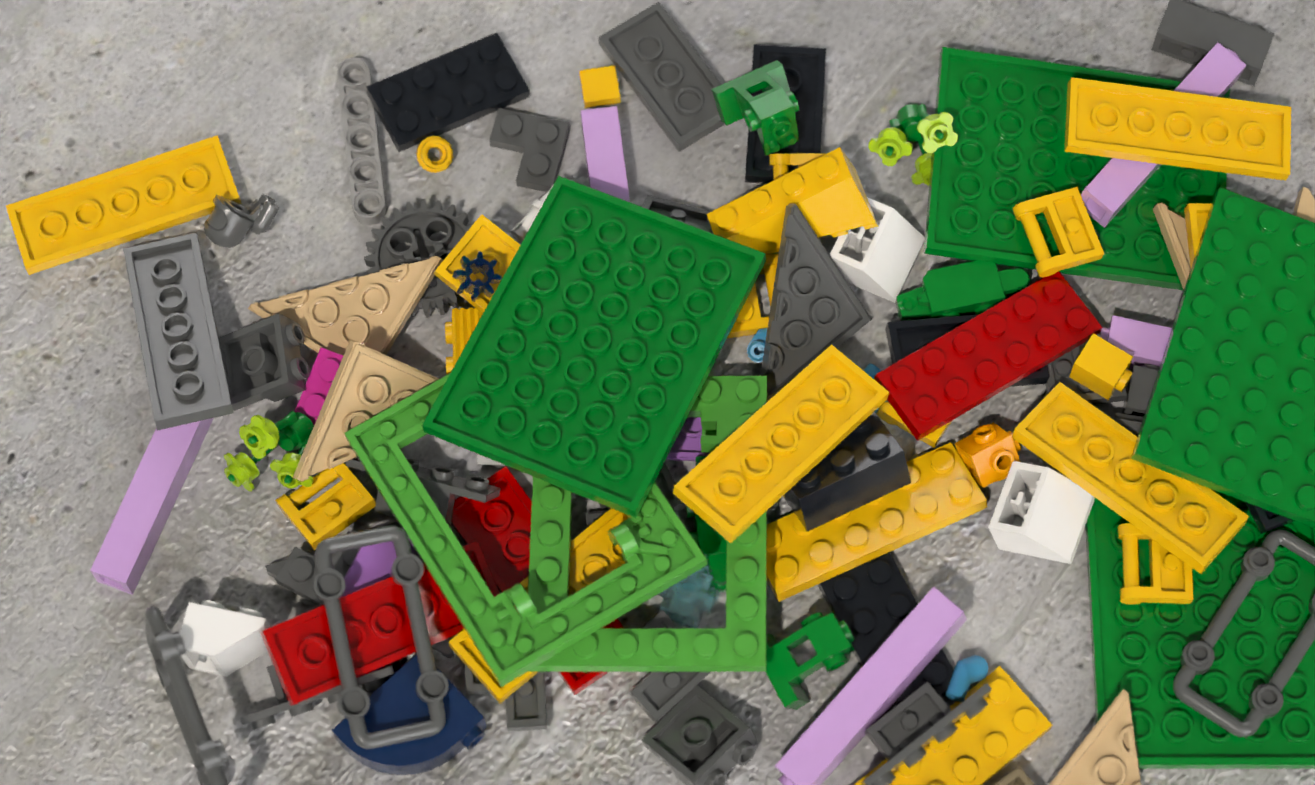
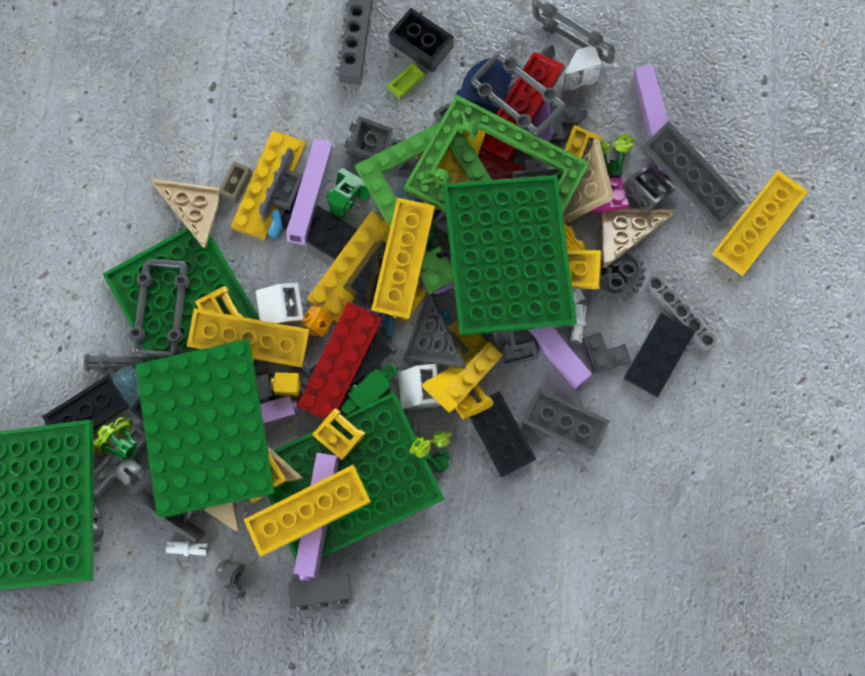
camera: 150 degrees right, 5 degrees up
(231, 221) = (708, 239): dark grey piece -> none
(444, 148) = (642, 318): yellow plate -> none
(475, 266) = (576, 251): gear -> none
(599, 86) = (594, 400): yellow tile -> none
(768, 113) = (500, 411): green tile -> none

